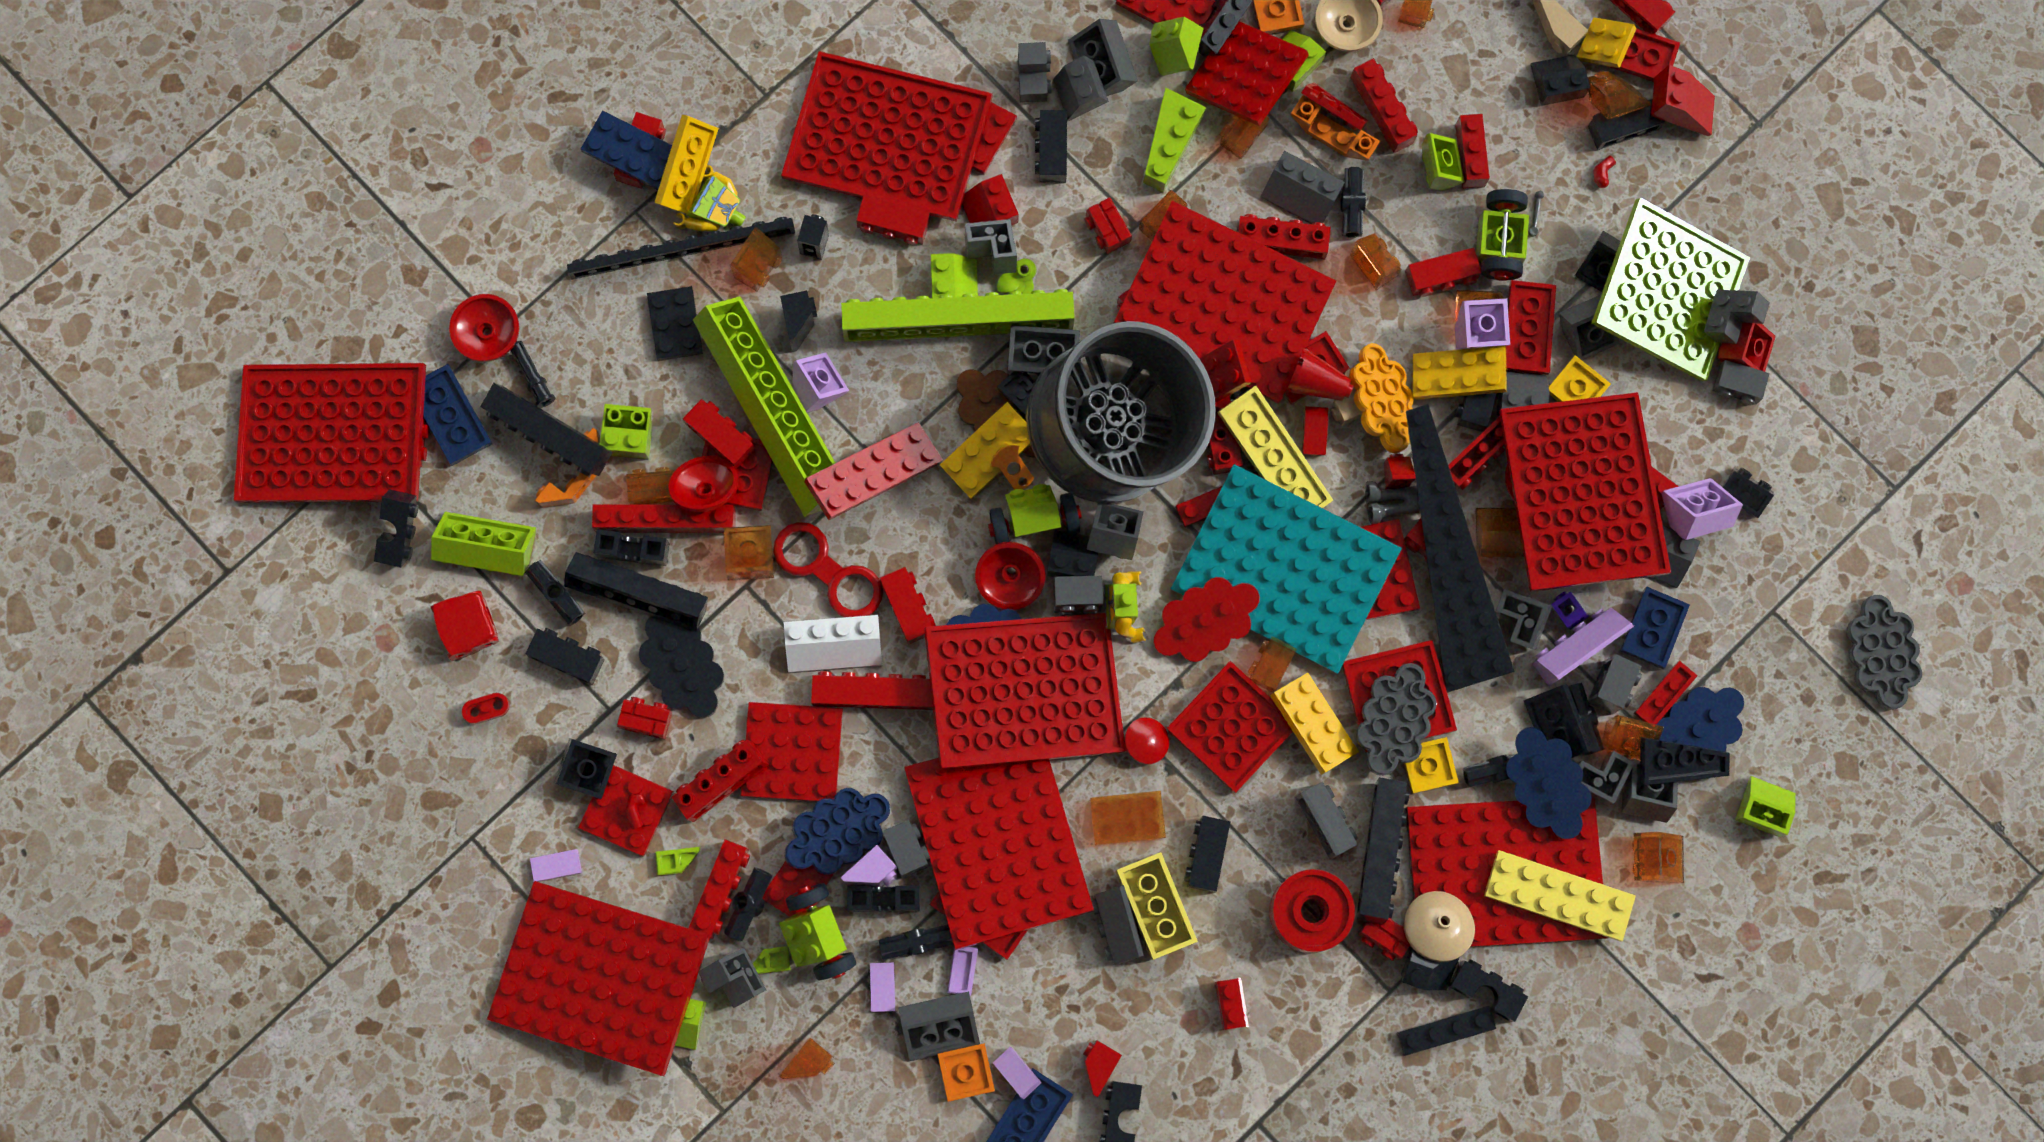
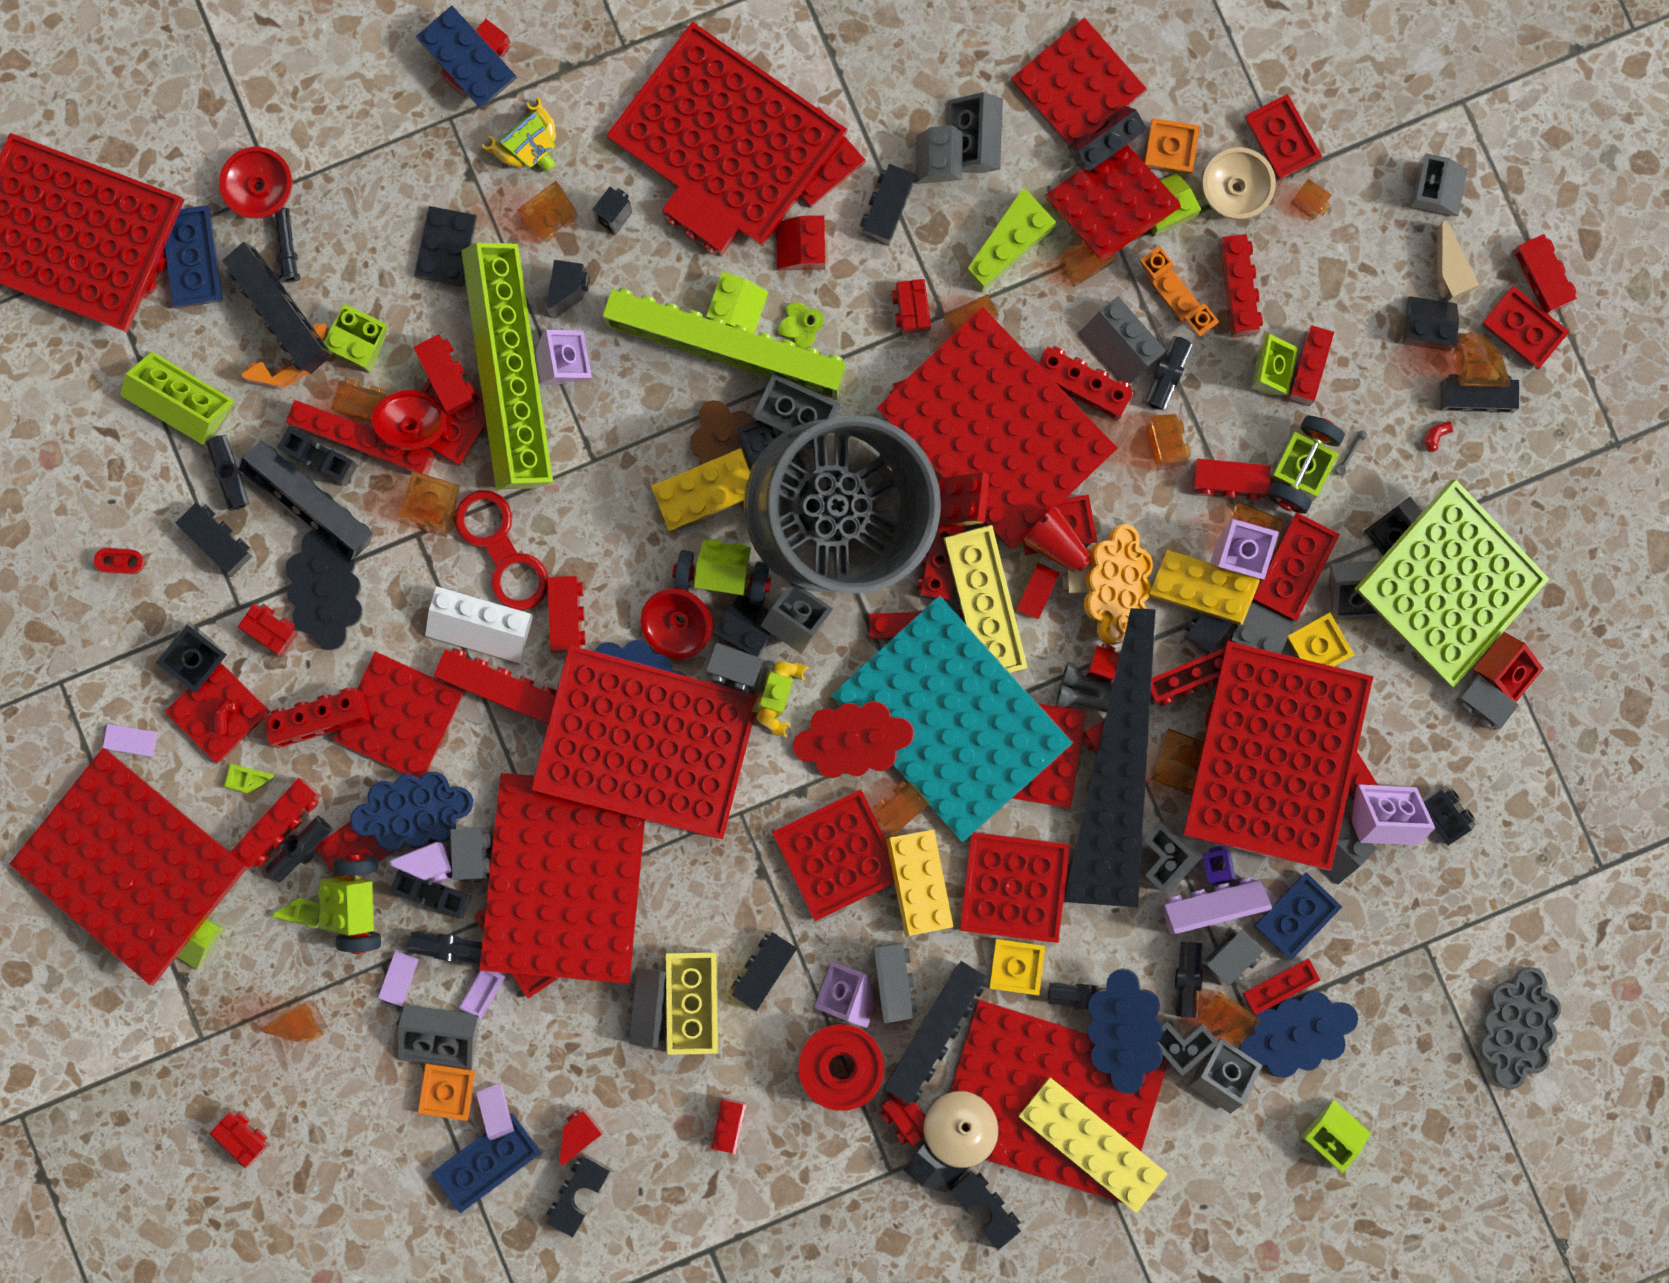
camera: 25 degrees right, 5 degrees up
(400, 510) = (105, 337): black arch -> none
(465, 624) = (128, 471): red piece -> none
(671, 249) = (470, 170): black plate -> none
(686, 164) = (513, 90): yellow plate -> none
(736, 977) = (260, 915): dark grey brick -> none
(873, 471) = (580, 469): plate -> none
(992, 240) = (791, 280): dark grey brick -> none
(1006, 456) = (714, 504): orange piece -> none
(1032, 69) = (899, 116): dark grey brick -> none
(1127, 818) = (699, 905): clear orange plate -> none
(1146, 740) = (747, 837): red dish -> none
(1175, 45) = (1051, 146): lime slope -> none
(1289, 847) = (847, 995): none -> lavender slope
(1334, 106) = (1184, 261): red wing -> none
(1396, 719) = (1000, 910): dark grey plate -> none
(1446, 1030) = (930, 1232): black plate -> none
(1558, 718) = (1161, 971): black plate -> none
(1606, 42) = (1493, 304): yellow plate -> none
(1658, 857) = (1207, 1145): clear orange slope -> none
(1676, 762) = (1262, 1059): black wing -> none
(1682, 100) = (1546, 394): red slope -> none
(1733, 309) = (1502, 629): dark grey brick -> none

